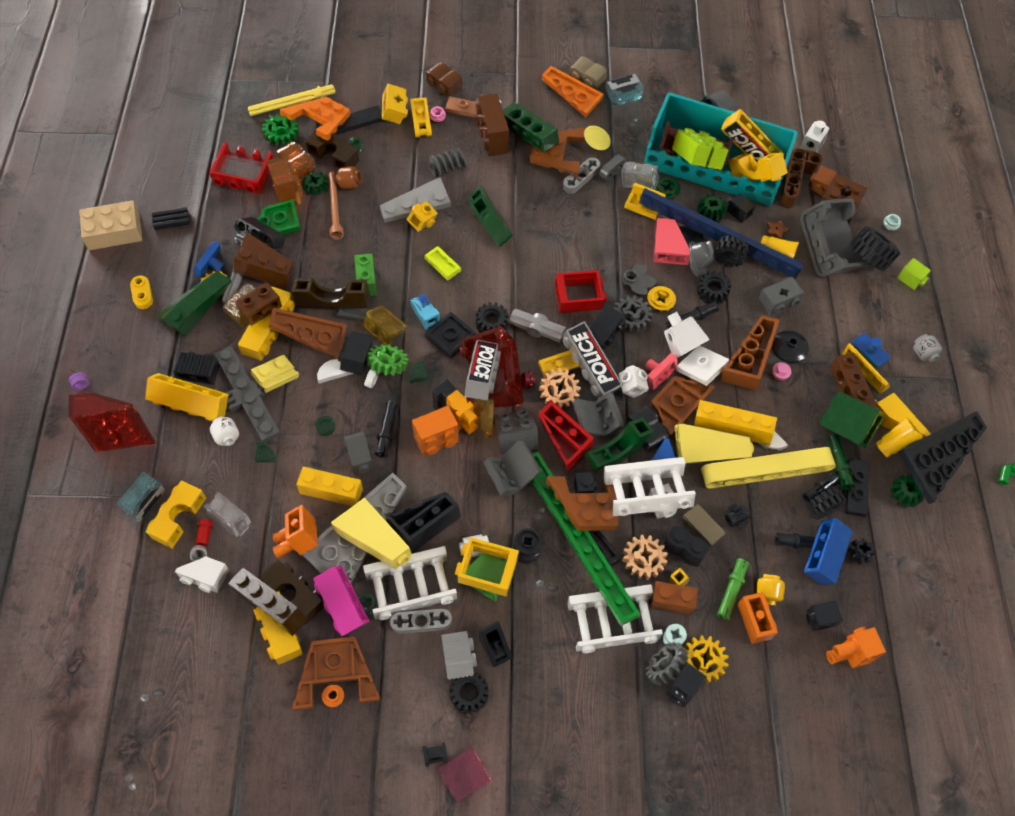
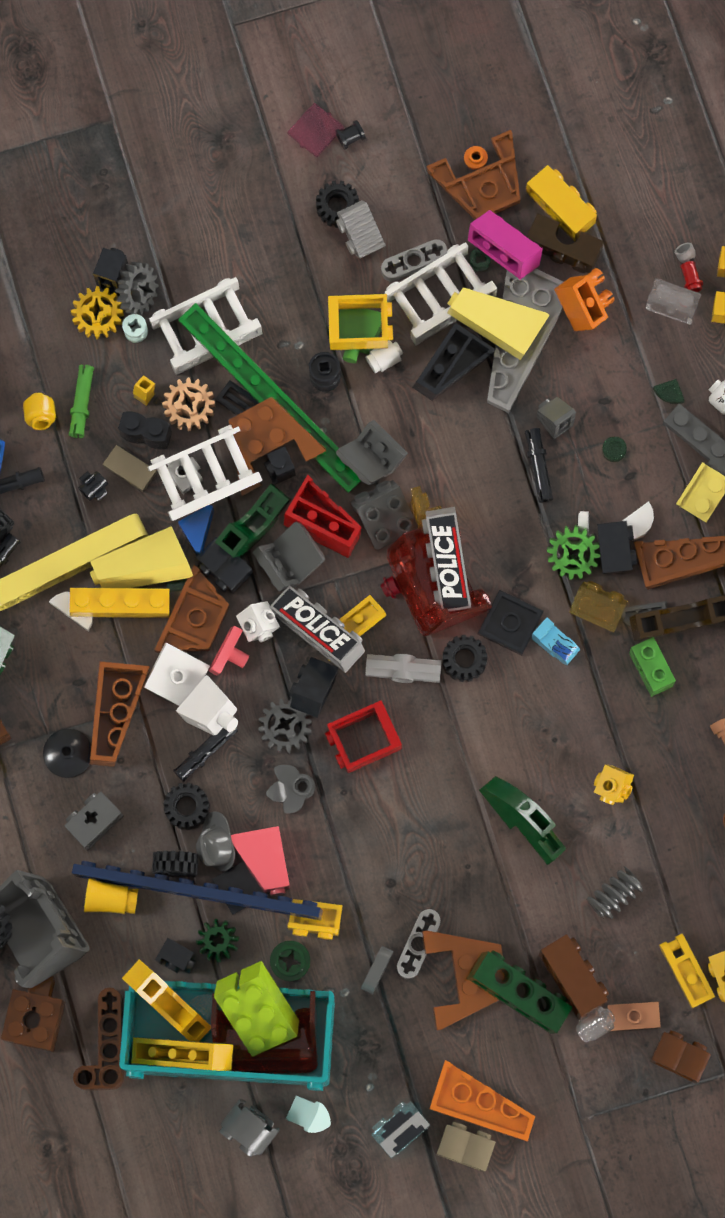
camera: 170 degrees right, 15 degrees up
(205, 573) = (666, 232): white slope -> none
(268, 600) = (562, 204): arch -> none
(329, 486) = (573, 370): yellow brick -> none
(401, 206) = (628, 823): light grey wing -> none
(418, 373) = (530, 554): clear green tile -> none
(435, 431) = (476, 469): orange brick -> none
(437, 114) = (665, 978): bright pink plate -> none
(442, 263) = (560, 724): neon yellow plate -> none
(448, 395) = (469, 513): light orange hips -> none
(495, 644) = (326, 259): black slope -> none
(551, 385) = (355, 589): light nougat gear -> none
(597, 138) = (415, 1018): light yellow piece -> none
(641, 174) = (333, 958): clear brick -> none
(663, 293) = (254, 755): yellow gear -> none
(674, 598) = (150, 363): dark orange brick -> none
(757, 618) = (48, 369): orange brick -> none
(774, 232) = (125, 942): dark orange plate -> none
(781, 371) = (73, 706): bright pink plate -> none
(816, 134) = (91, 1117): white torso -> none
(821, 180) = (67, 1047): dark orange brick -> none

